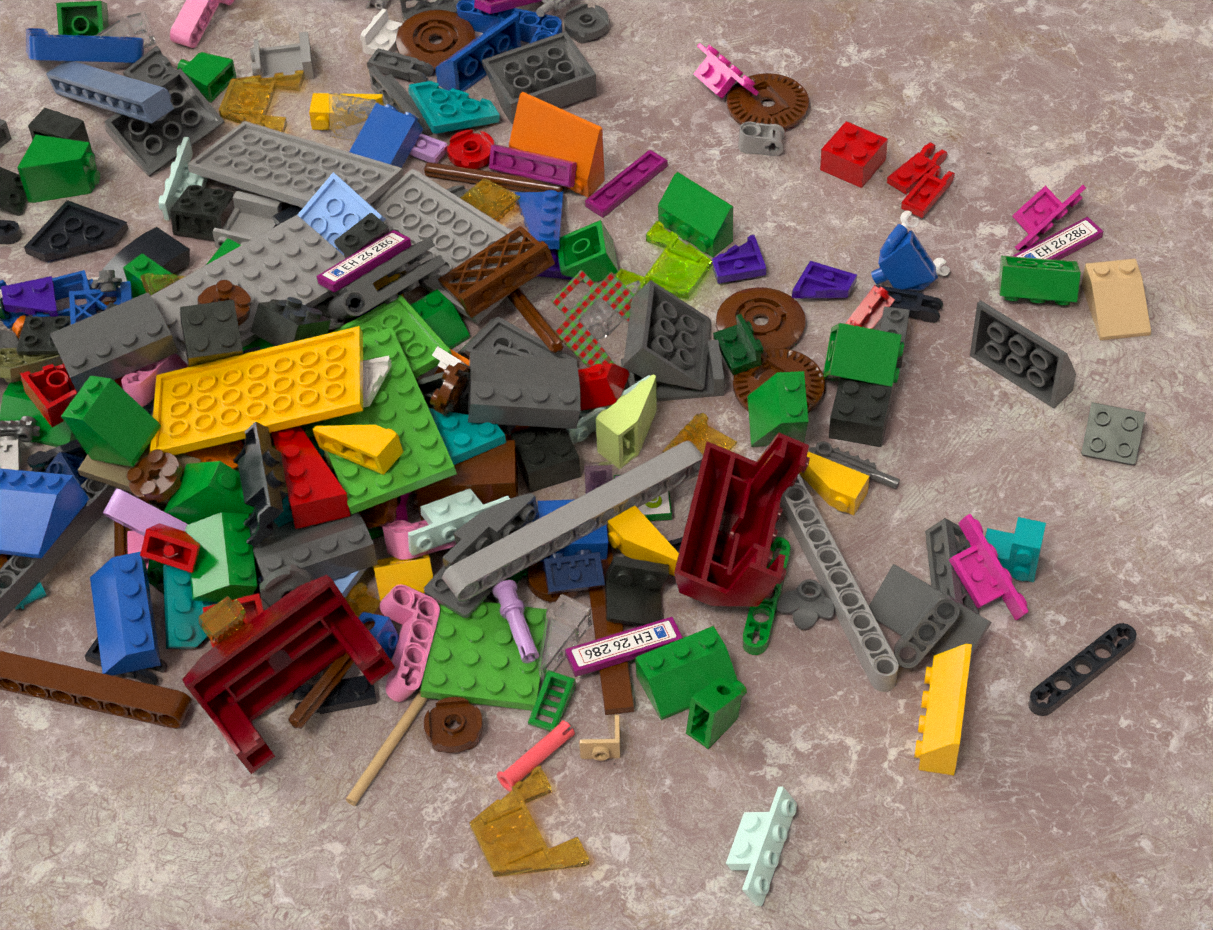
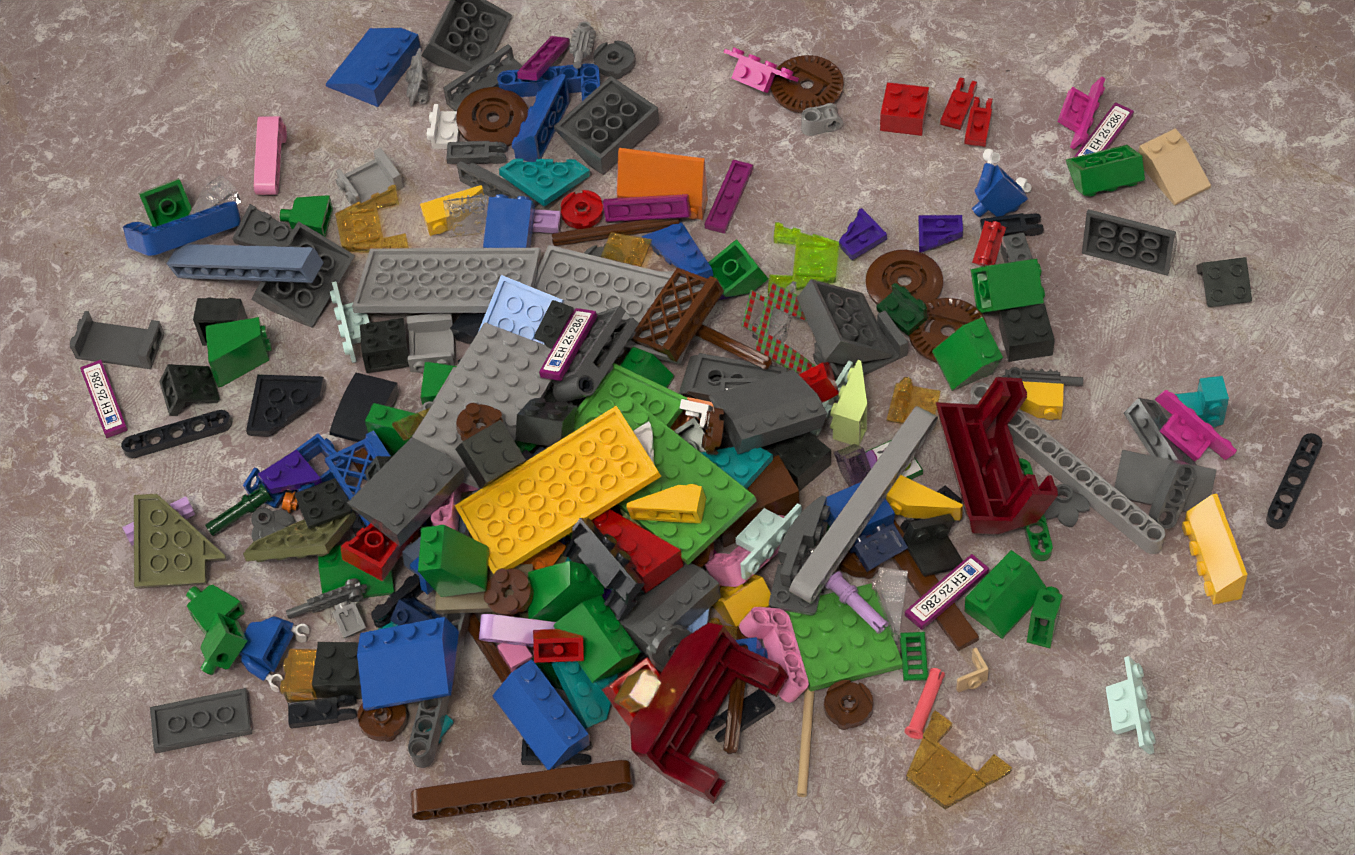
camera: 20 degrees left, 5 degrees up
(106, 281) = (355, 437): dark grey piece -> none
(696, 215) = (808, 207): green slope -> none

